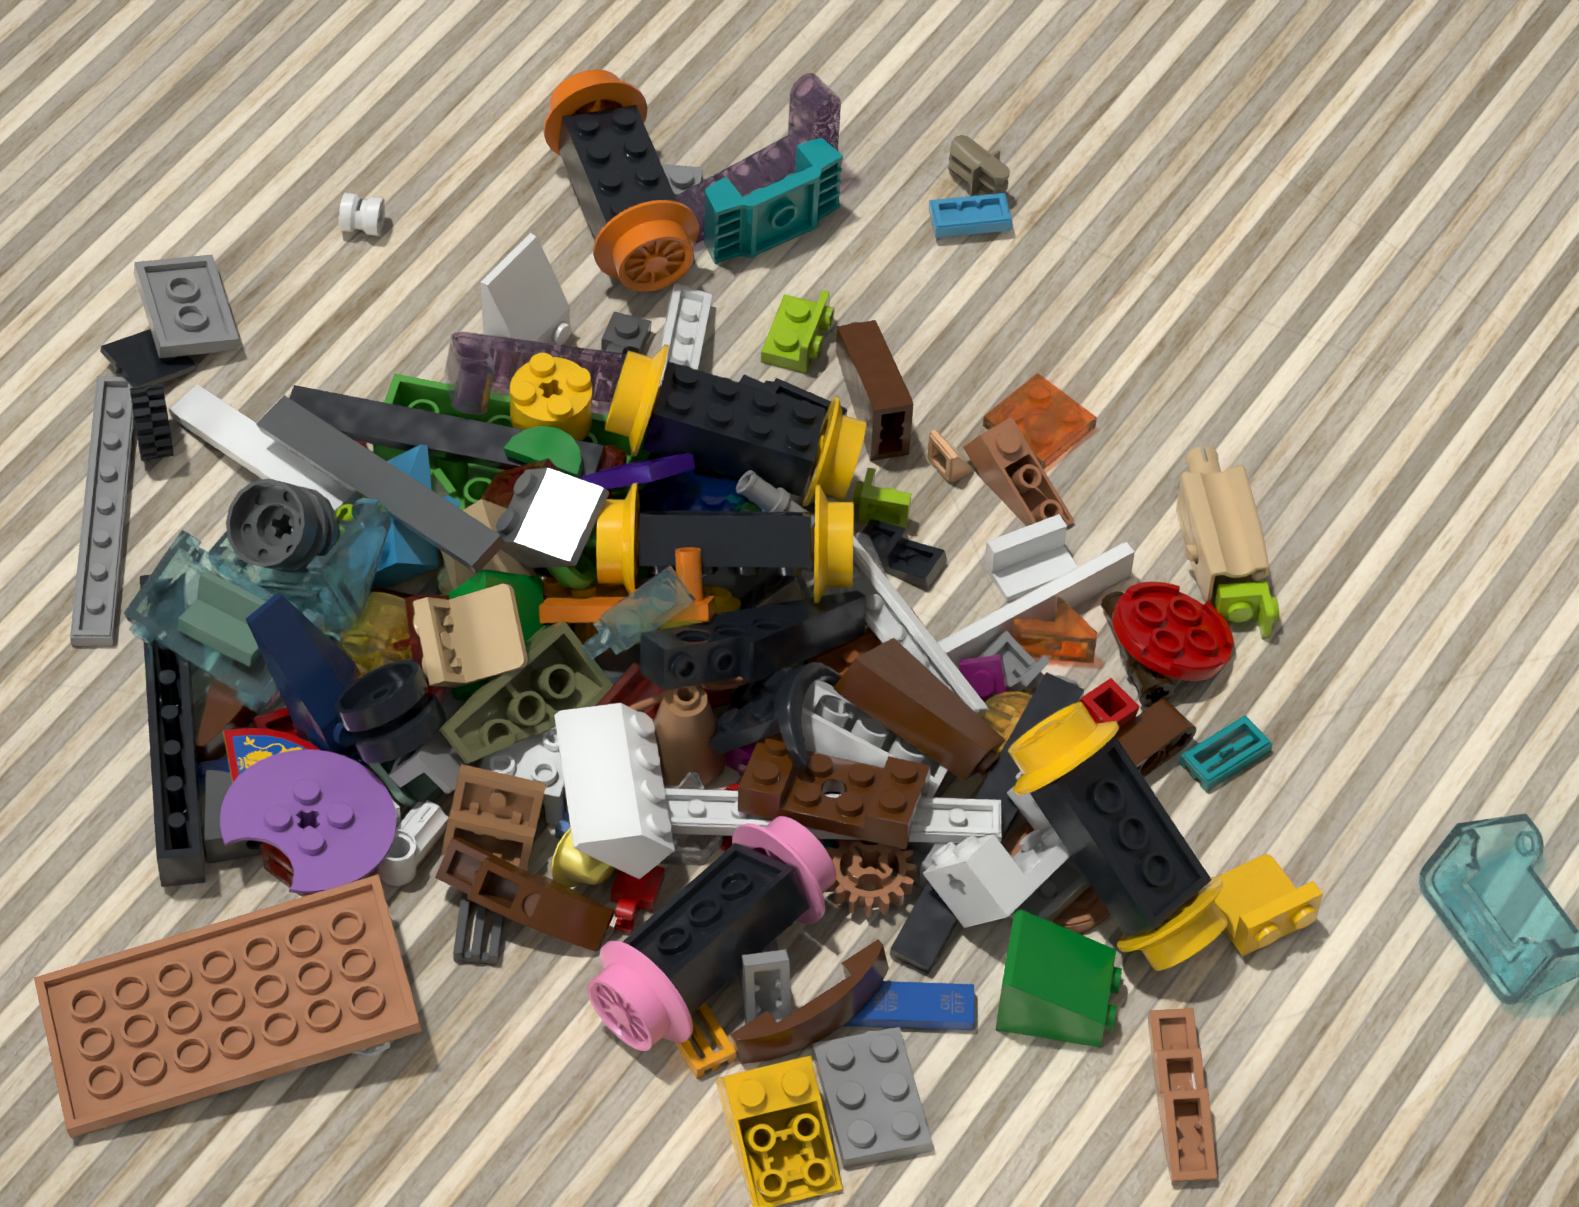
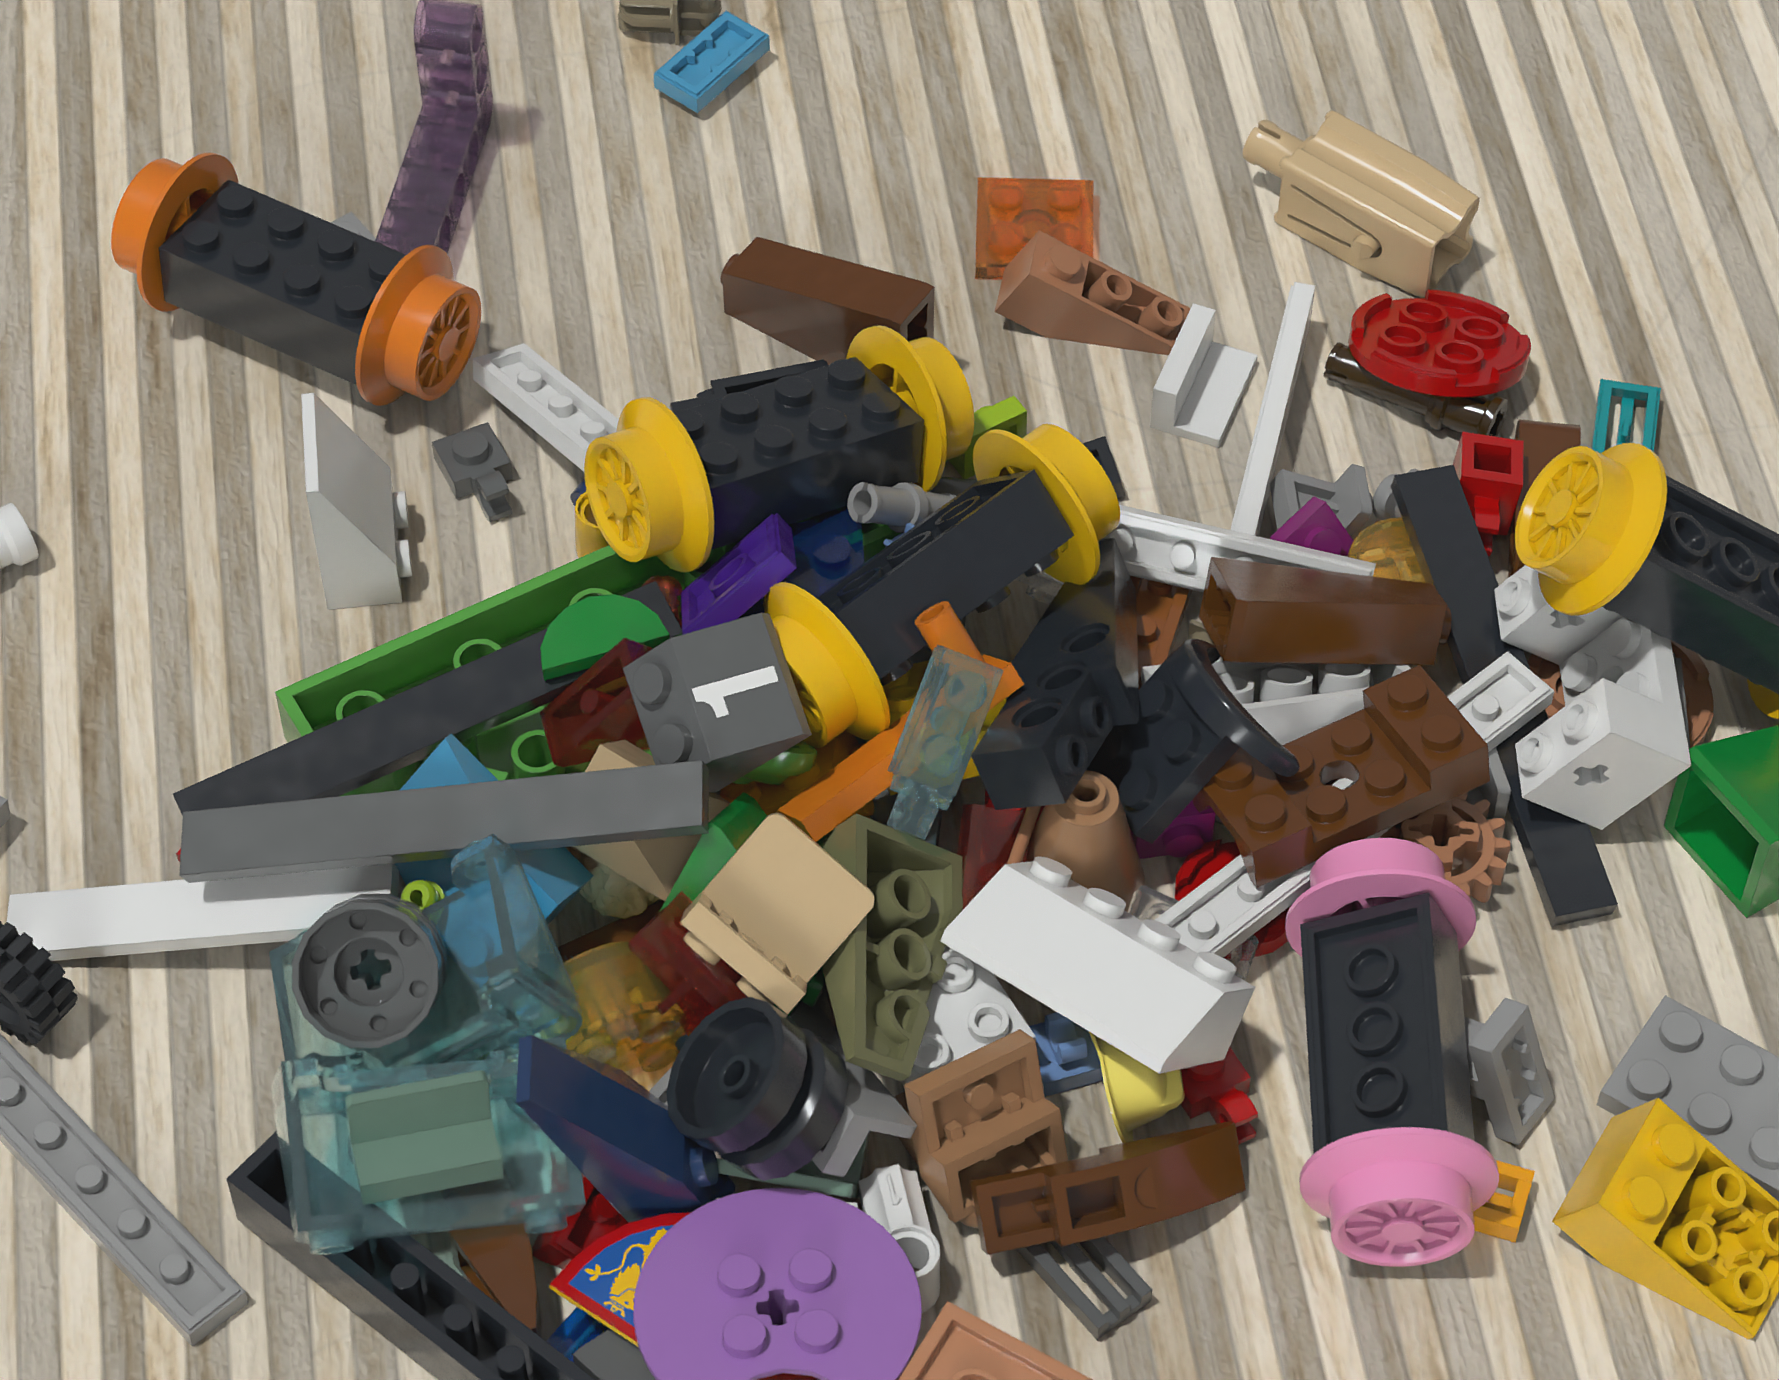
camera: 40 degrees left, 0 degrees up
(489, 361) = (397, 594): beam -> none
(553, 395) = (520, 573): yellow brick -> none
(767, 1039) = (1560, 1116): reddish brown slope -> none
(776, 212) = (491, 227): teal plate -> none
(797, 332) = (667, 316): lime bracket -> none
(918, 1006) = (1637, 966): blue tile -> none
(947, 458) = (987, 336): light nougat slope -> none
(1064, 639) = (1329, 432): clear orange slope -> none
(1246, 602) = (1479, 255): lime bracket -> none

